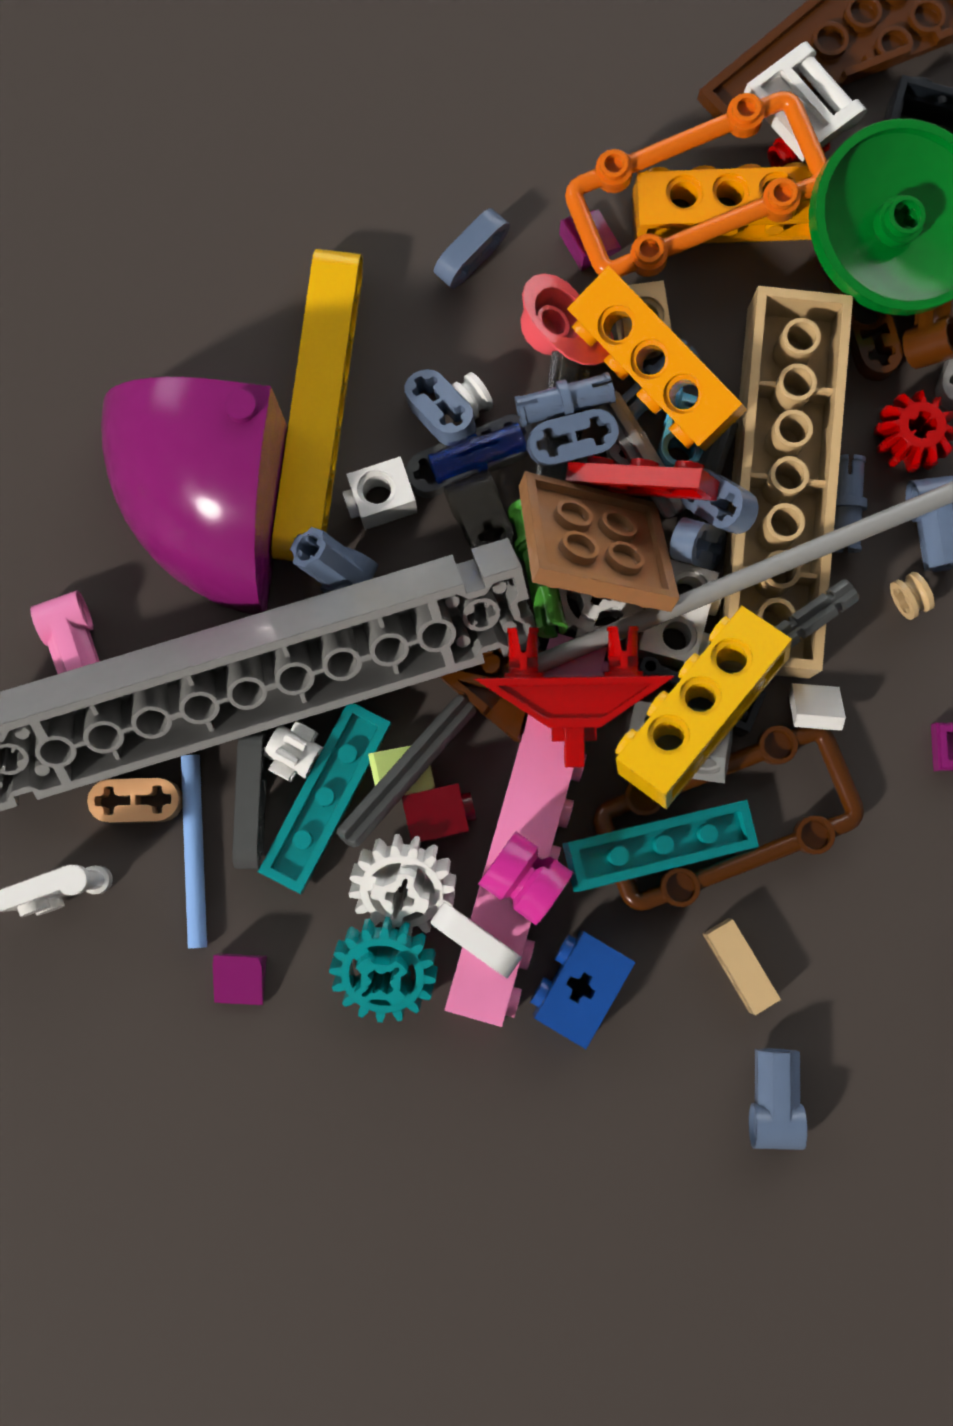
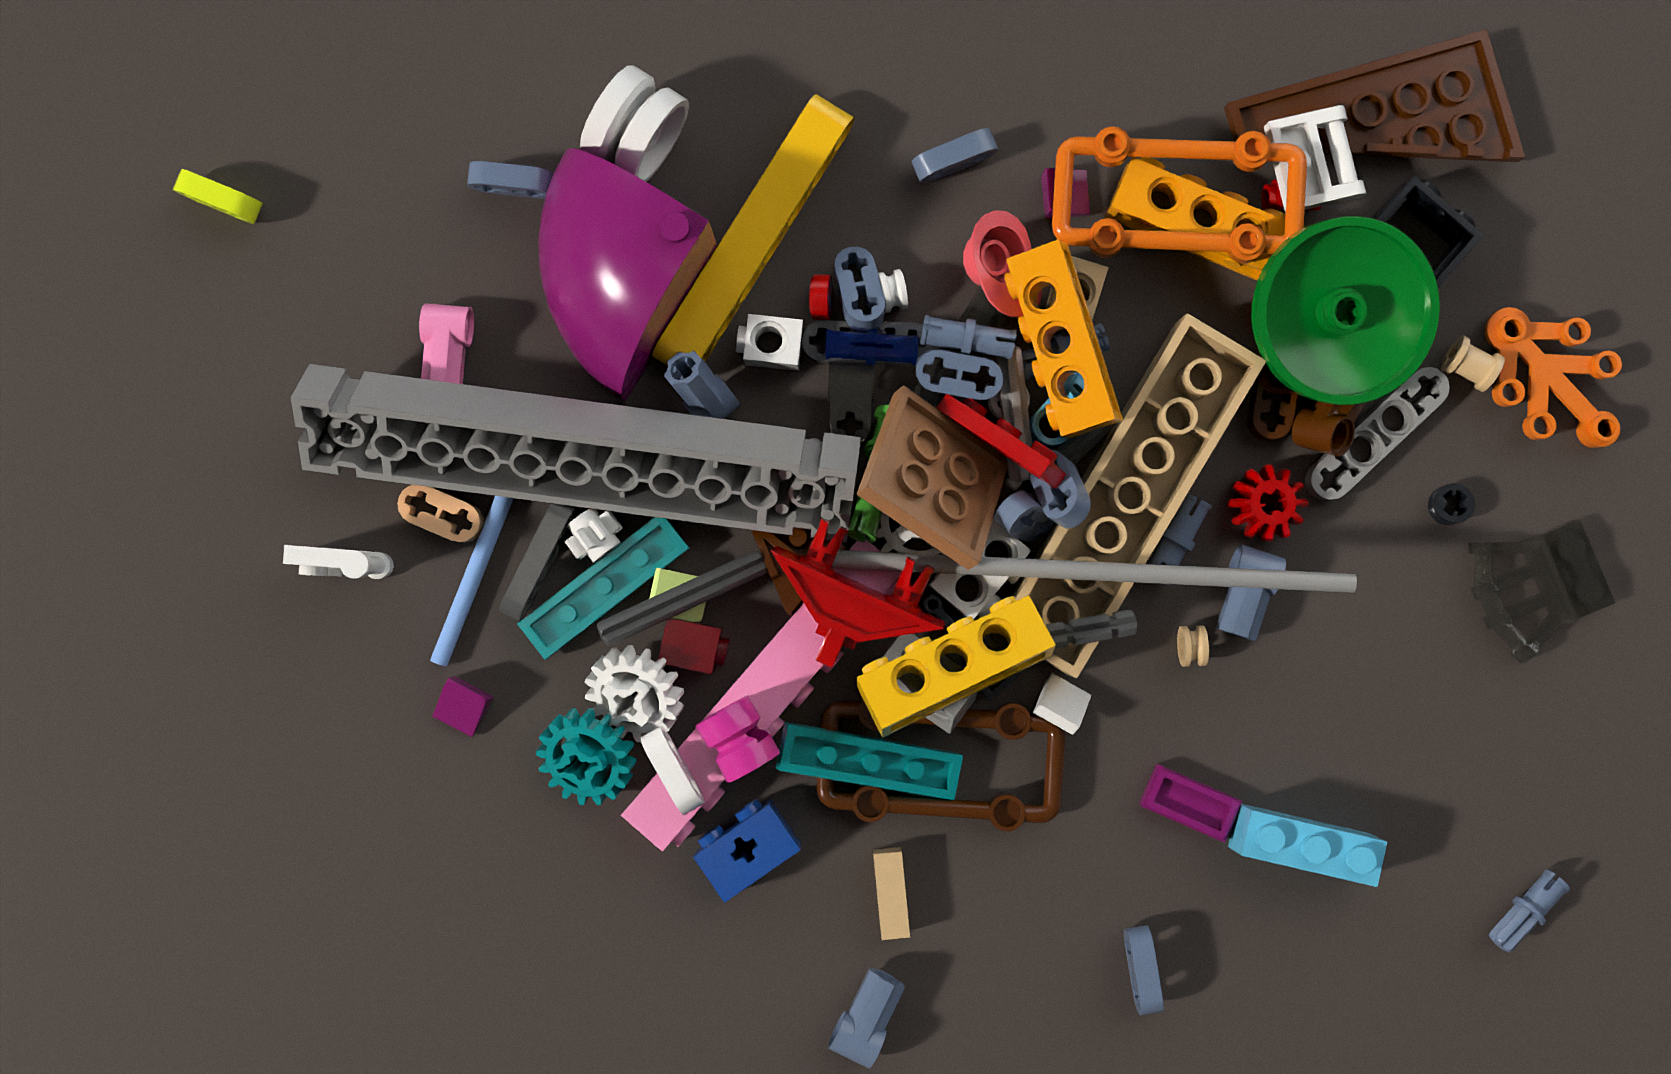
camera: 20 degrees right, 5 degrees up
(61, 455) = (509, 179): none -> sand blue beam
(156, 339) = (634, 123): none -> white wheel
(407, 431) = (821, 297): none -> red tile

